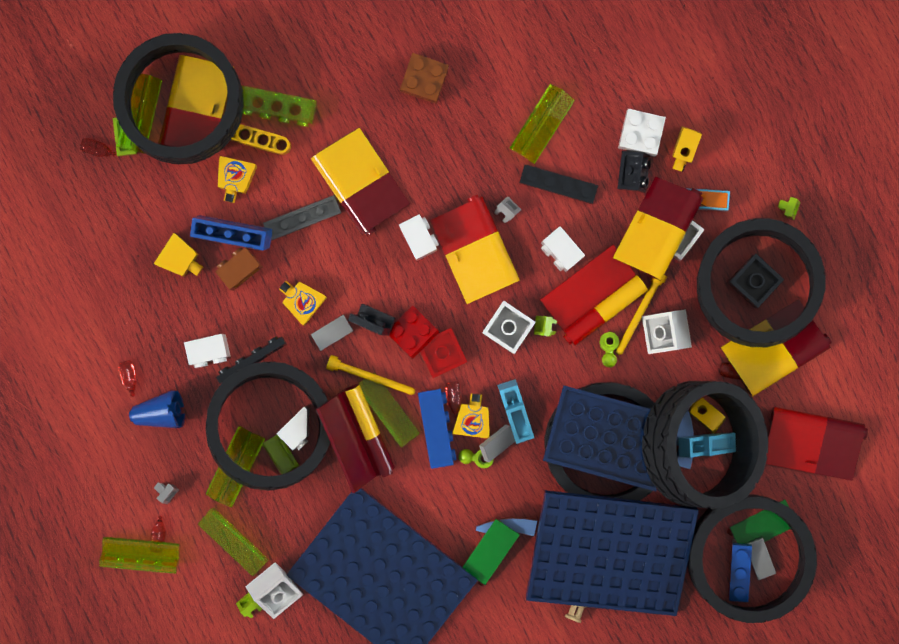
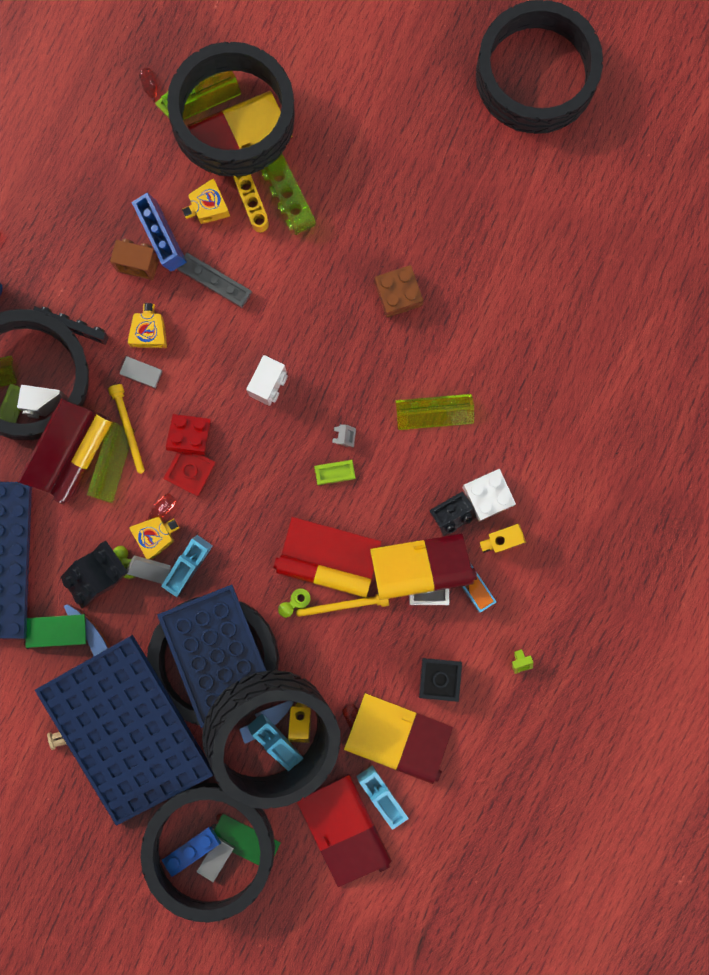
camera: 55 degrees right, 5 degrees down
(179, 257) = (110, 208): yellow torso -> none
(207, 349) = (50, 284): white brick -> none
(360, 181) = (278, 303): door -> none
(373, 320) = (173, 395): black bracket -> none
(435, 428) = (125, 511): blue brick -> none
(469, 489) = (93, 574): none -> black bracket
(474, 249) = (292, 434): door -> none
(508, 327) = (249, 507): white brick -> none
(530, 239) = (335, 472): none -> lime tile
(543, 326) = (272, 535): lime tile -> none
(558, 184) = (396, 461): black plate -> none
(562, 249) = (345, 502): white brick -> none
(666, 331) = (343, 639): white slope -> none
(789, 236) = (493, 662): black tyre -> none
(810, 394) = (382, 797): none -> medium azure slope

